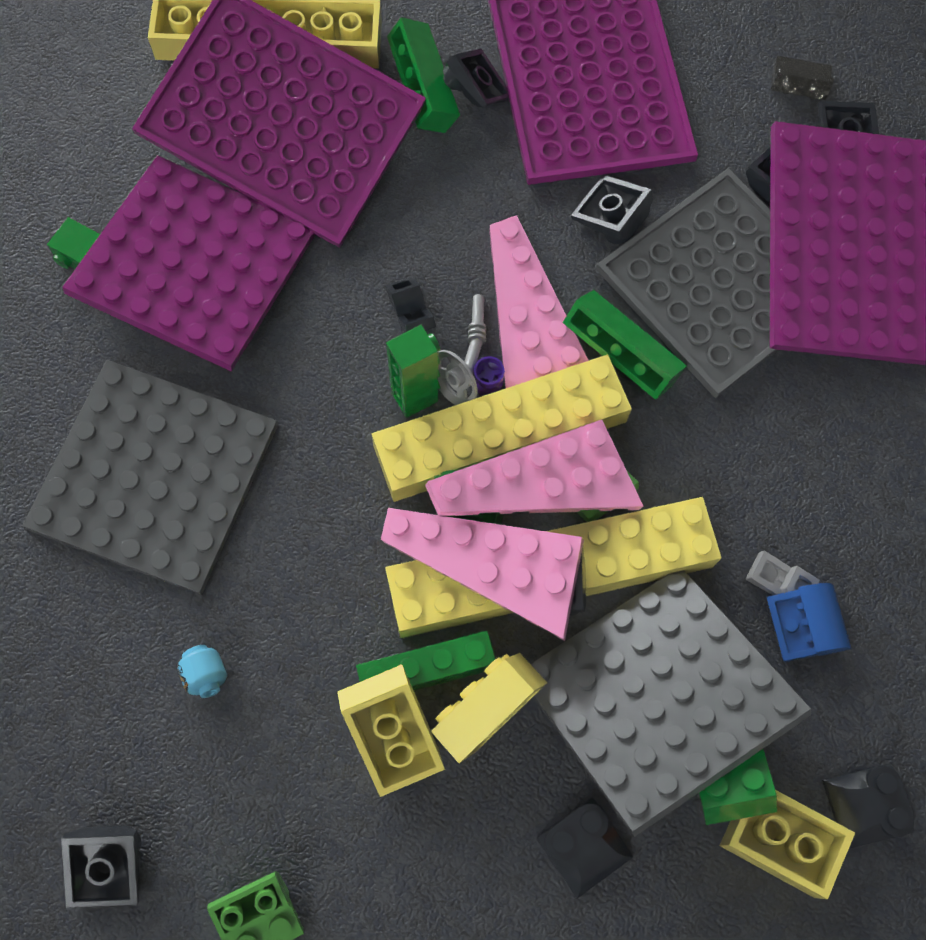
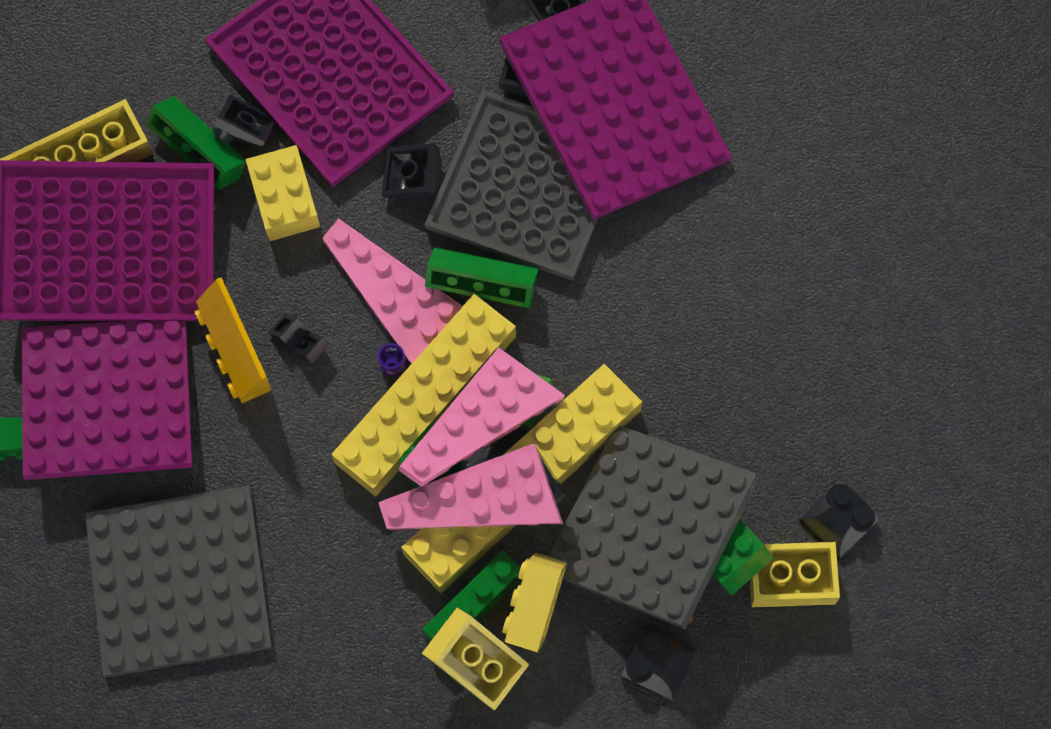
camera: 25 degrees left, 0 degrees up
(201, 671) = (310, 700): medium azure head -> none
(342, 272) = (232, 343): none -> yellow slope
(414, 370) = (338, 389): green brick -> none
(460, 372) = (368, 370): light grey dish -> none
(476, 163) = (282, 193): none -> light yellow brick
(777, 577) = (690, 392): light grey slope -> none
(809, 622) = (730, 412): blue brick -> none

